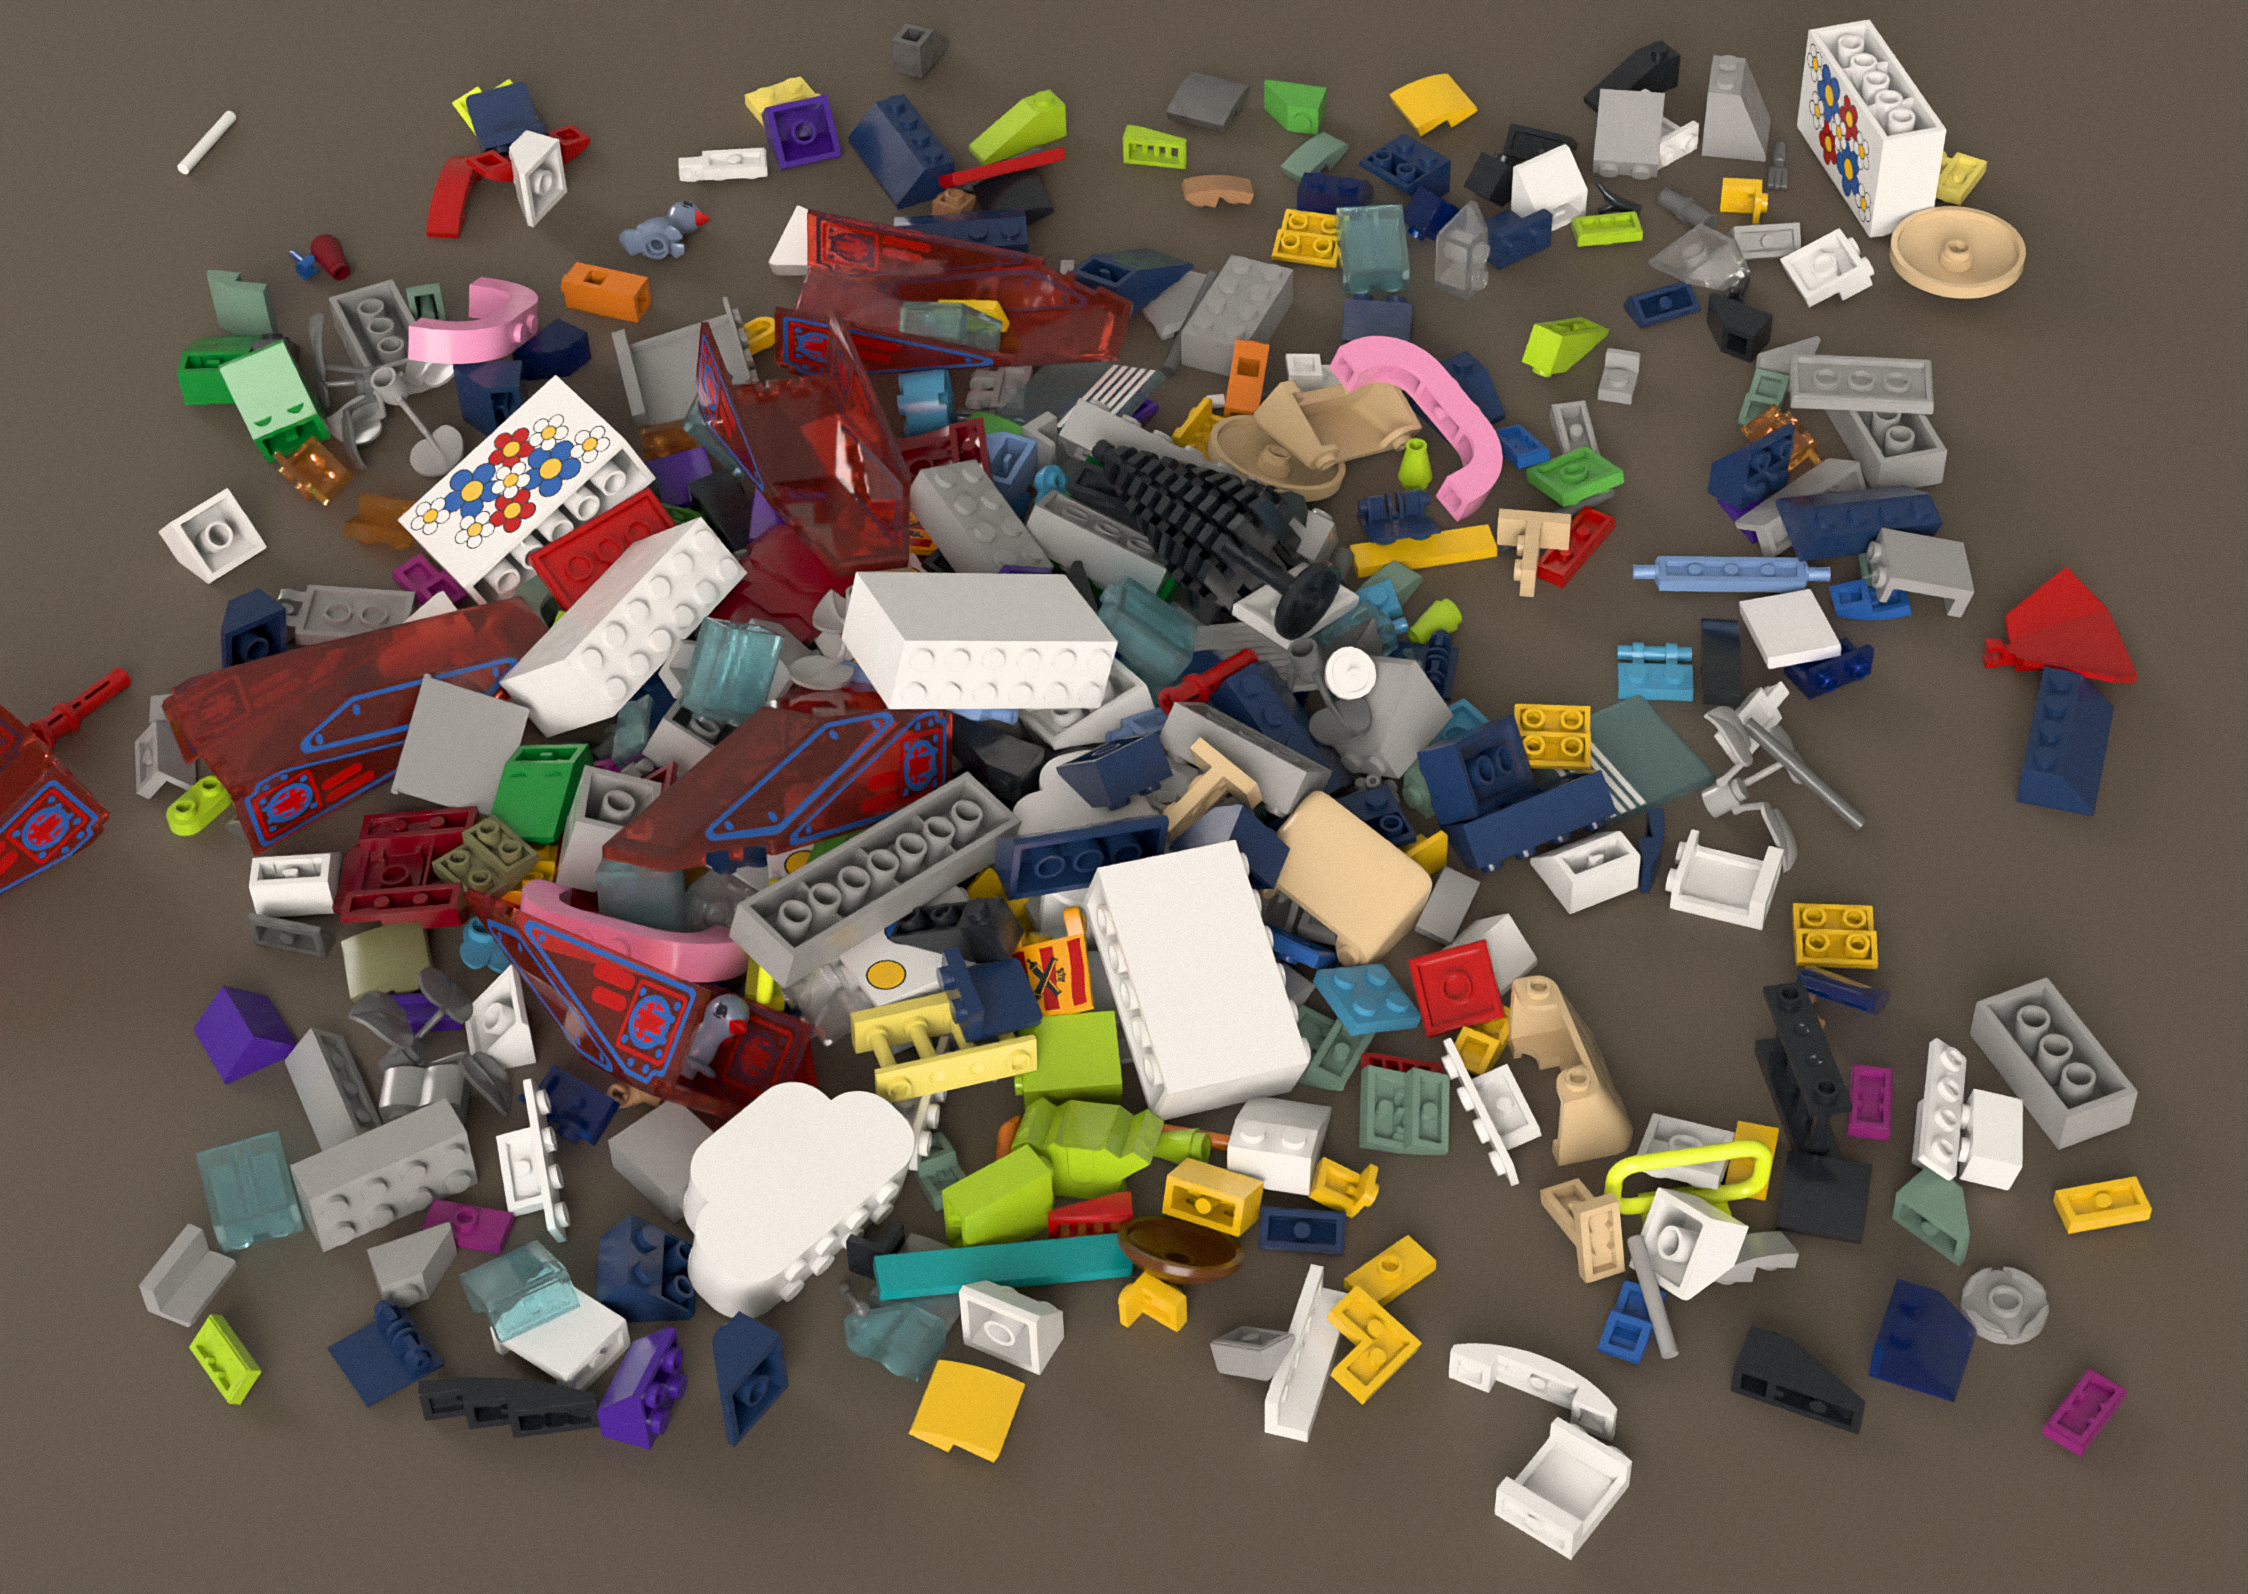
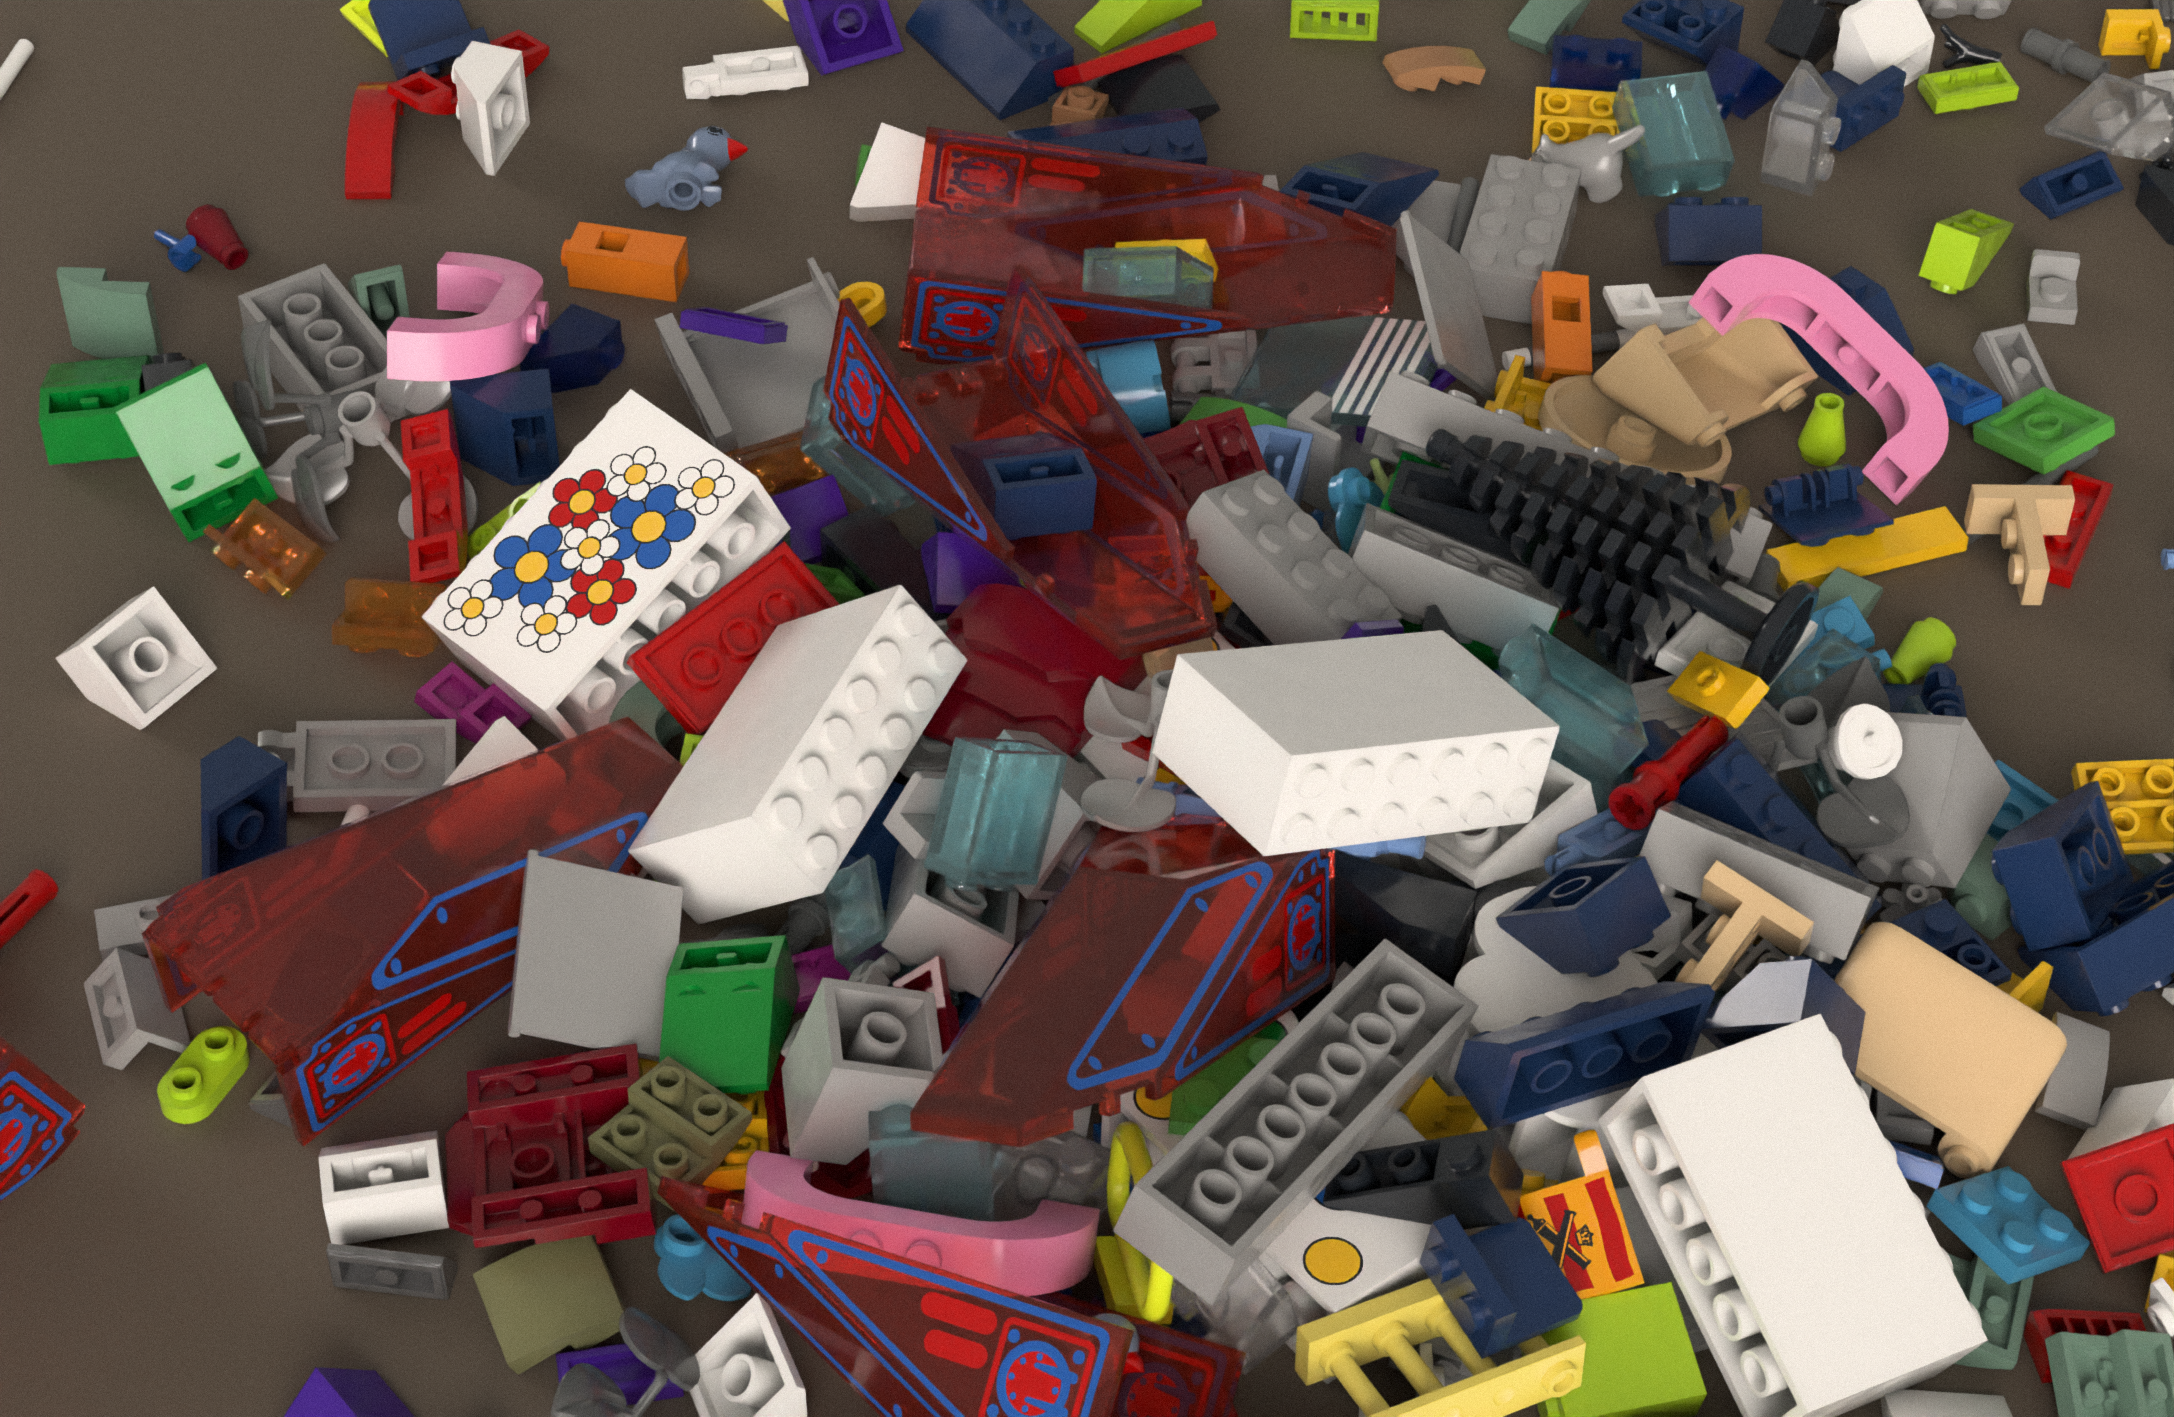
camera: 10 degrees left, 0 degrees up
(435, 440) = (437, 498): none -> red slope
(663, 340) = (733, 325): none -> dark purple tile
(817, 460) = (1031, 483): none -> dark blue slope
(1161, 360) = (1450, 308): none -> light grey piece
(1259, 631) = (1718, 689): none -> yellow plate
(1308, 263) = (1597, 157): none -> light grey animal

